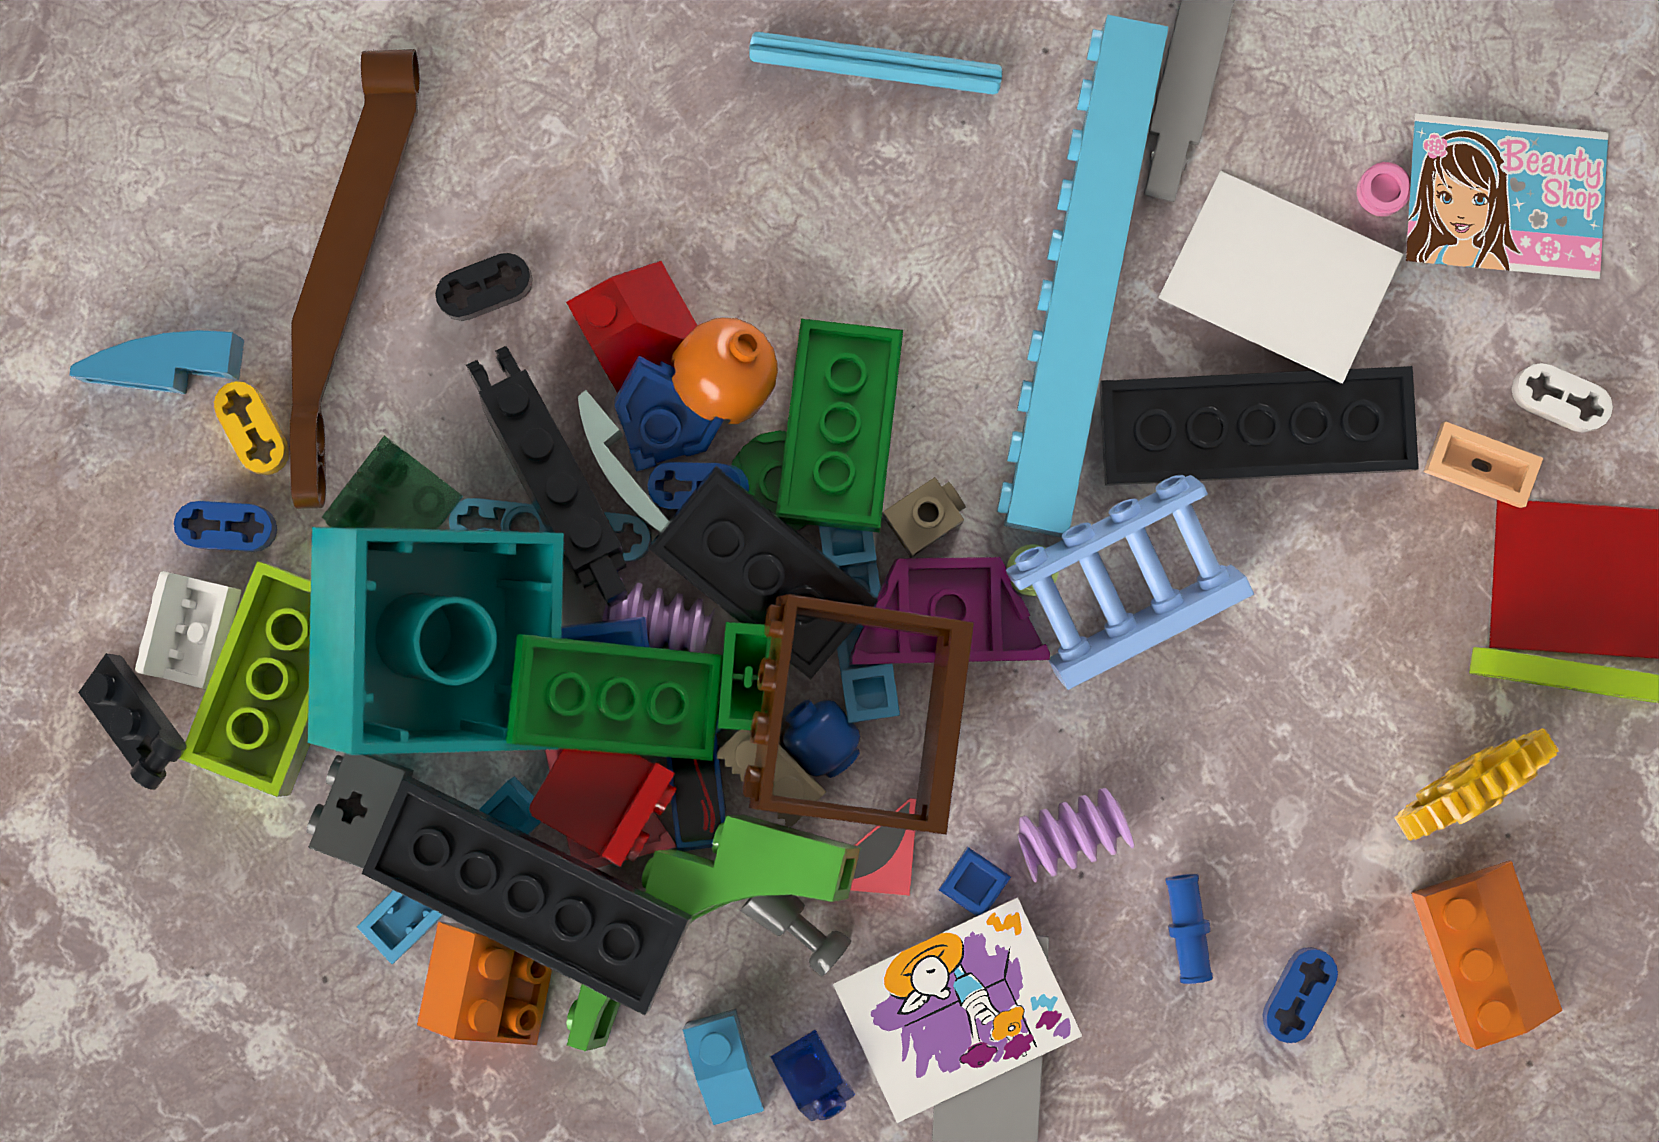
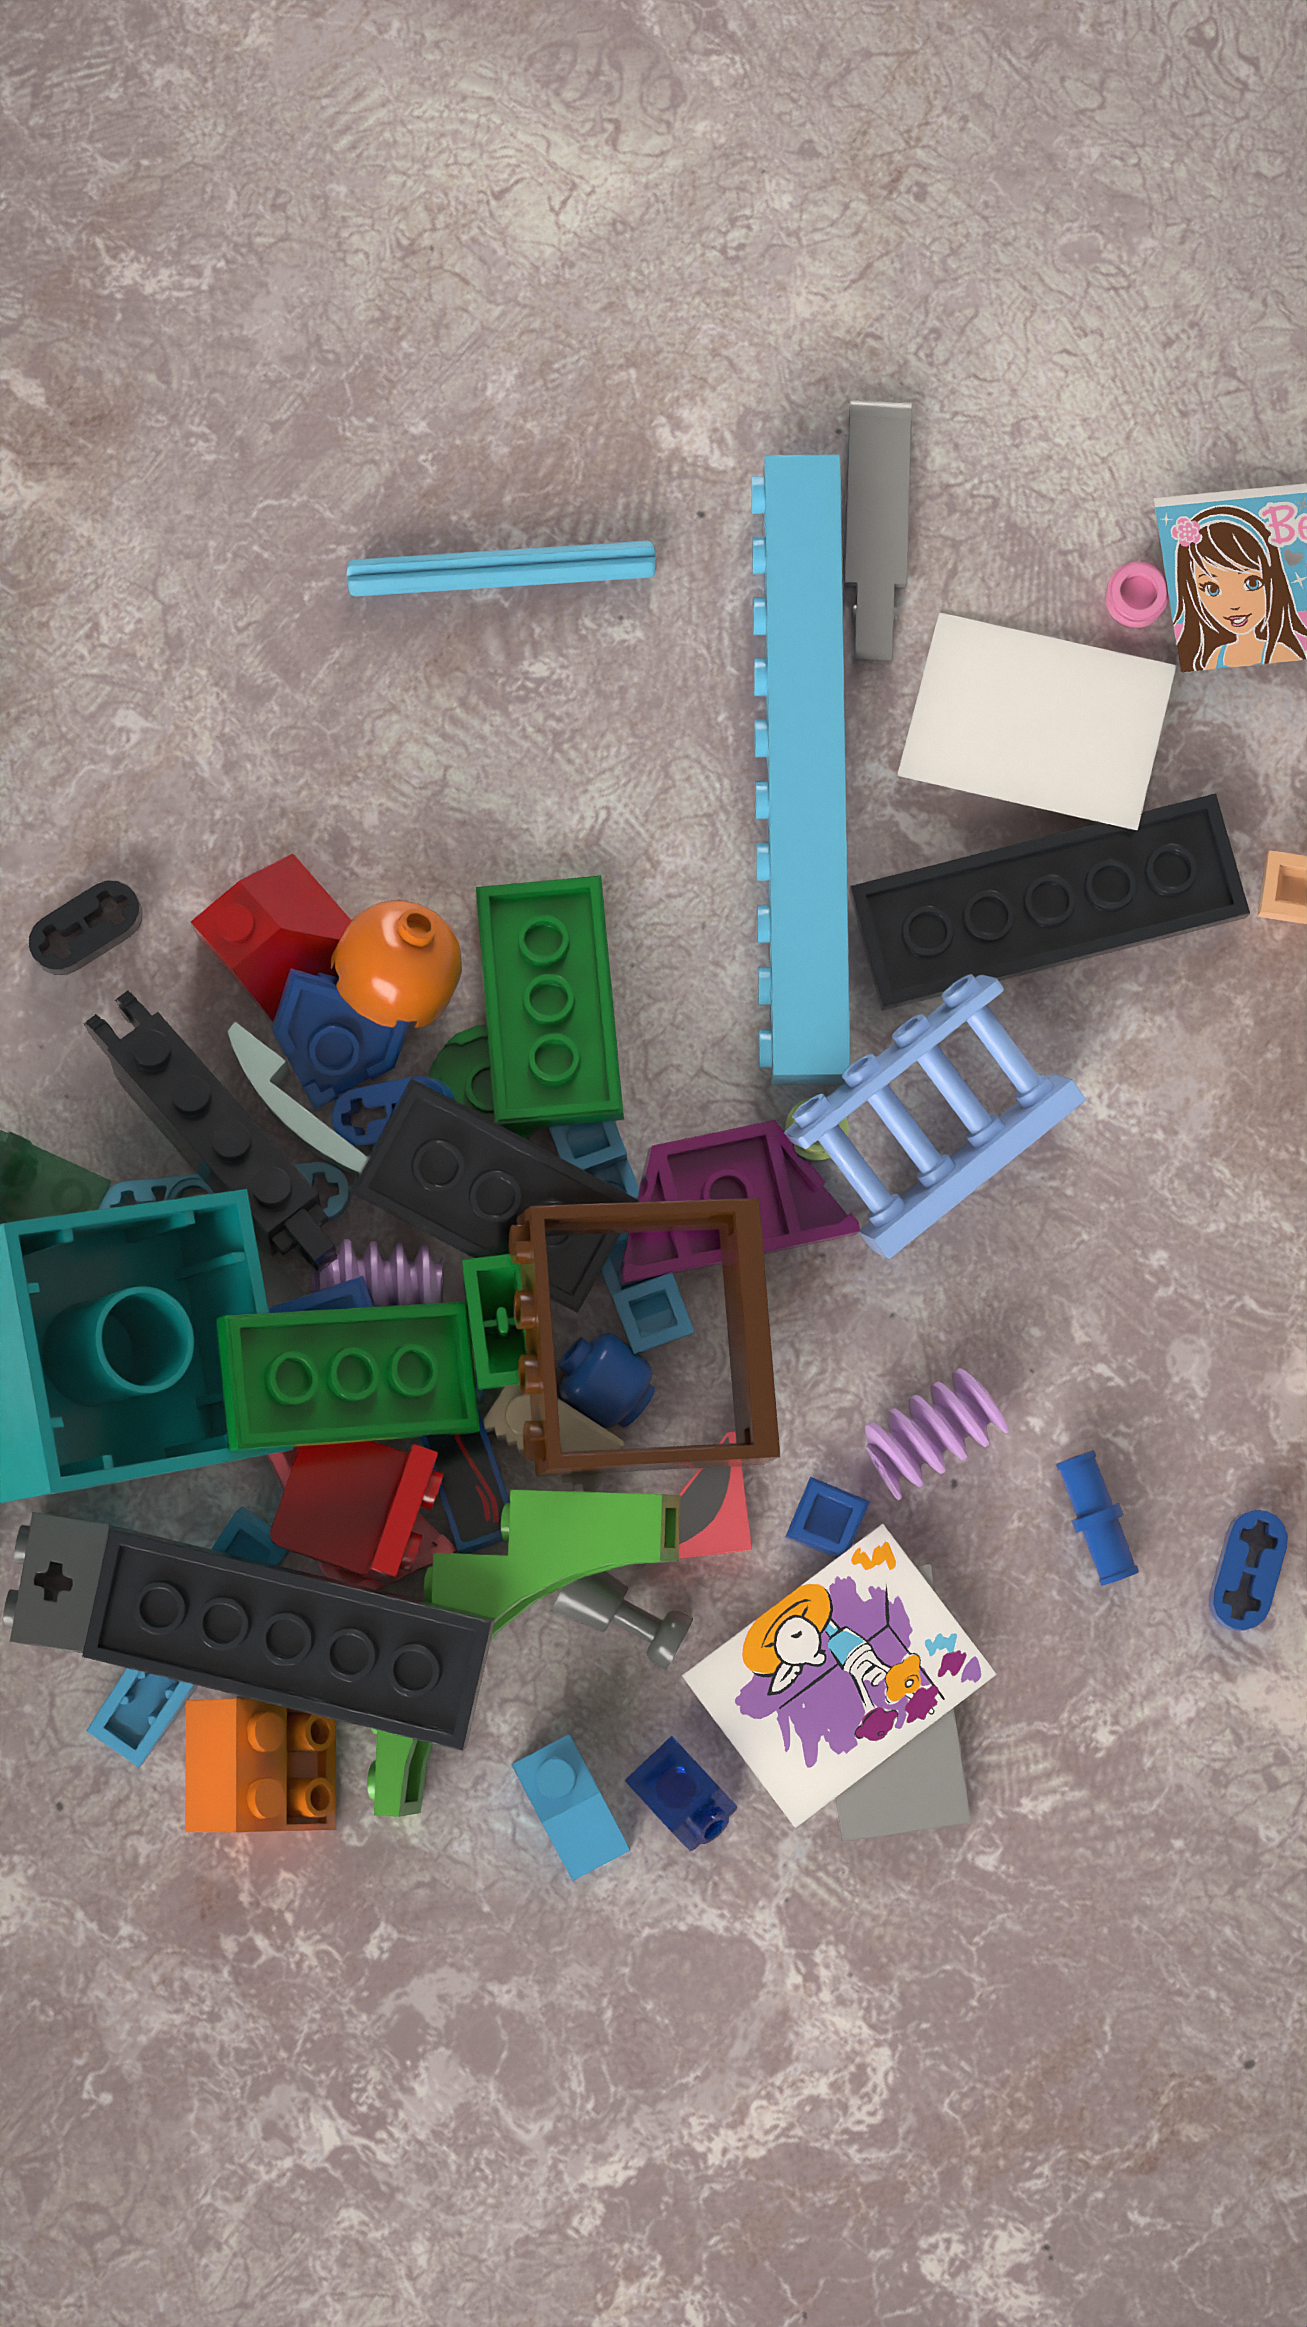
camera: 20 degrees left, 5 degrees down
(925, 515) = (673, 1090): dark tan brick -> none

